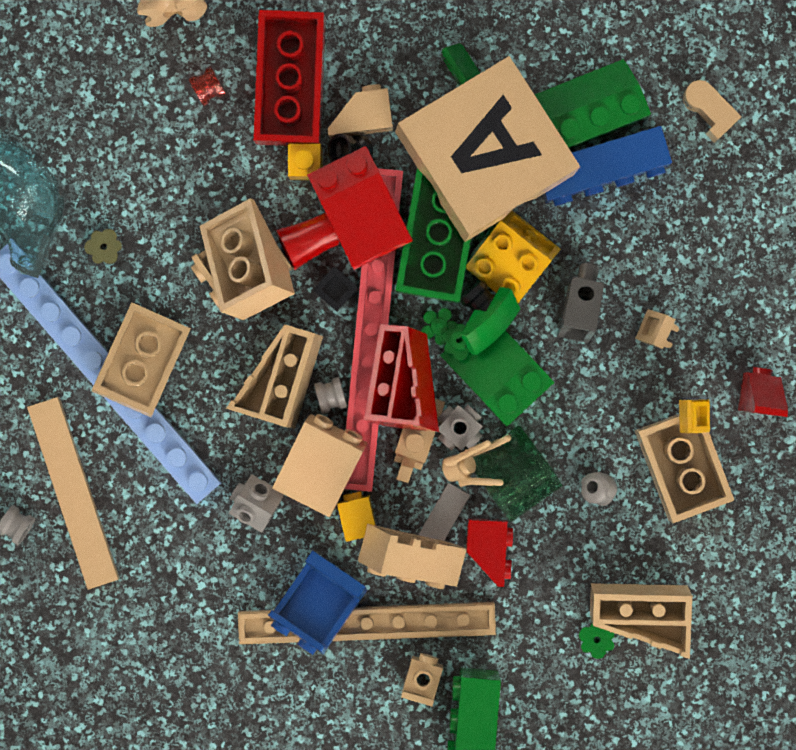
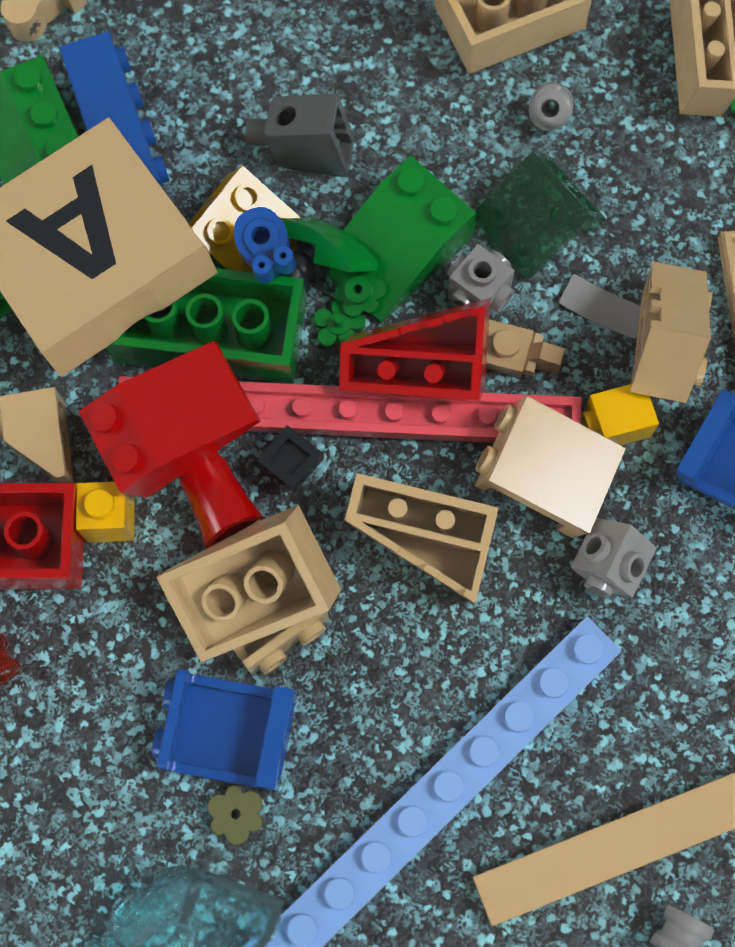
camera: 90 degrees left, 15 degrees down
(141, 359) = (409, 742): tan plate -> none
(156, 241) = (225, 730): none -> blue panel
(330, 395) = (445, 461): light grey wheel -> none
(344, 144) = (83, 457): black wheel -> none
(462, 465) = (532, 279): tan plant -> none
(485, 274) = (264, 243): none -> blue piece
(487, 547) = (639, 236): red slope -> none
(656, 329) = (332, 49): tan tile -> none

